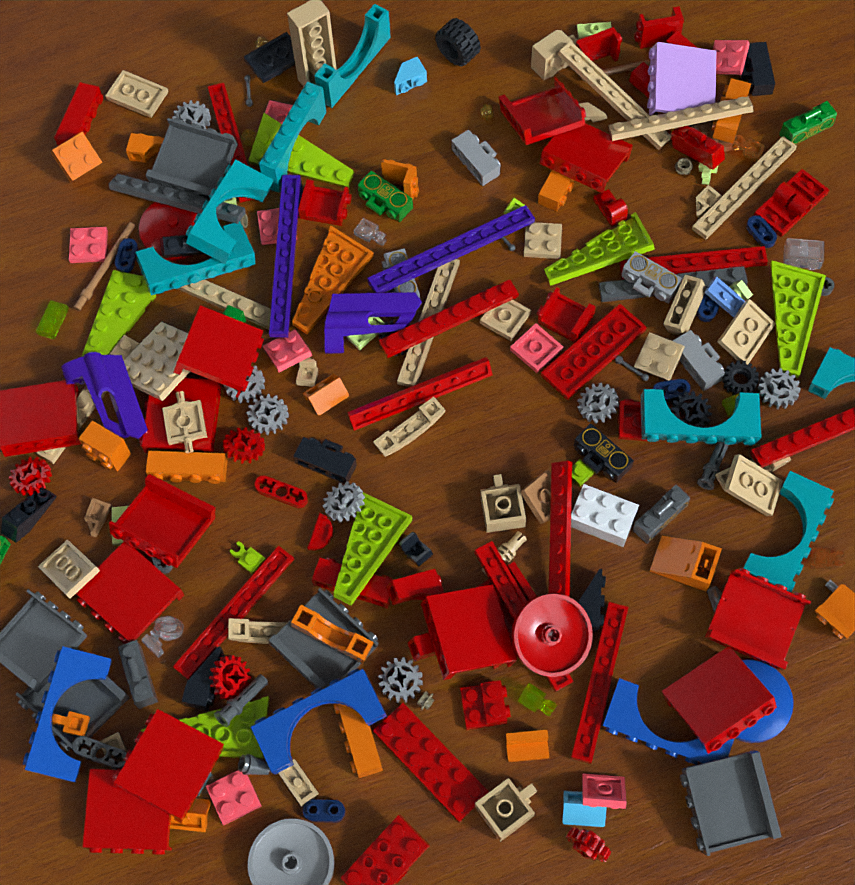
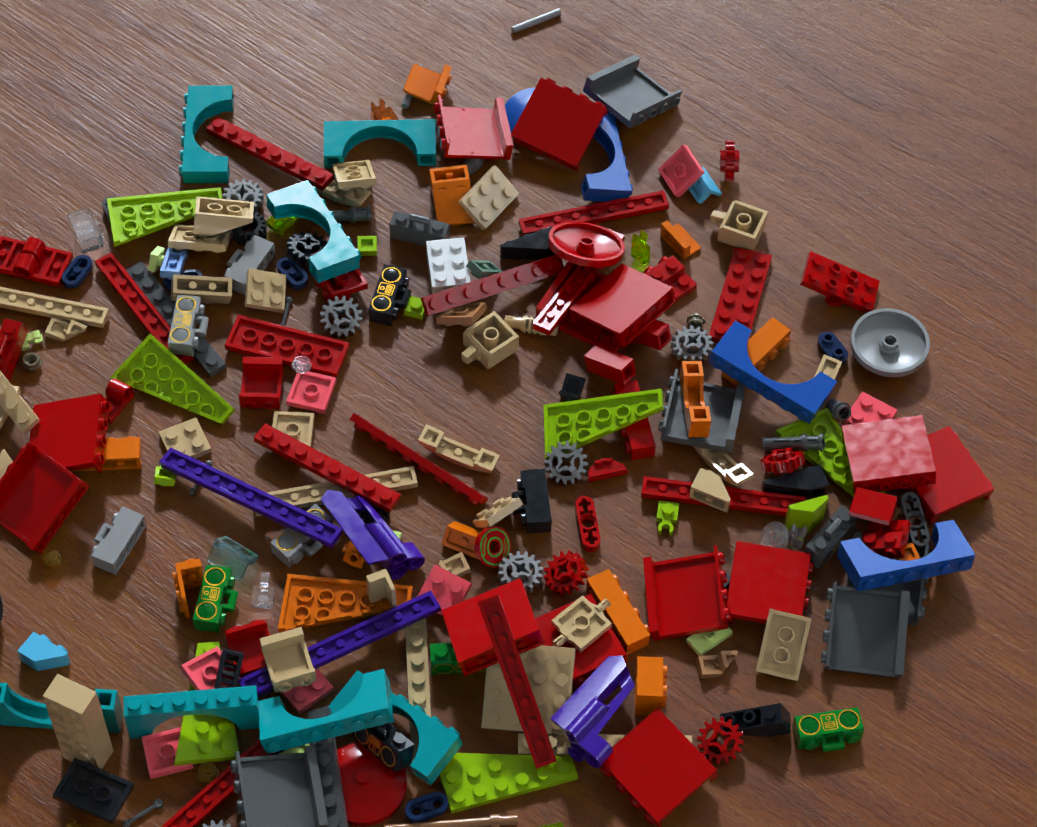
camera: 125 degrees left, 10 degrees down
(99, 712) = (887, 540): none -> red plate
(127, 715) = (873, 506): none -> red slope
(158, 335) = (517, 681): none -> red plate
(165, 660) = (806, 513): none -> lime slope
(239, 596) = (710, 490): none -> tan slope
(288, 208) = (288, 660): none -> tan panel
(295, 395) = (501, 550): none -> red tile
(305, 300) = (380, 587): none -> tan panel
(316, 161) = (203, 669): none -> coral plate
(317, 175) = (233, 656): none -> black slope
(327, 420) = (501, 509): none -> tan plate
(416, 227) = (231, 554): none -> clear light blue panel
(562, 346) = (301, 364): none -> clear plate
(583, 542) = (482, 268): none -> sand green plate
(666, 592) = (488, 197): none -> tan plate
(669, 464) = (367, 245): none -> lime plate
(757, 350) = (220, 215): none -> tan slope

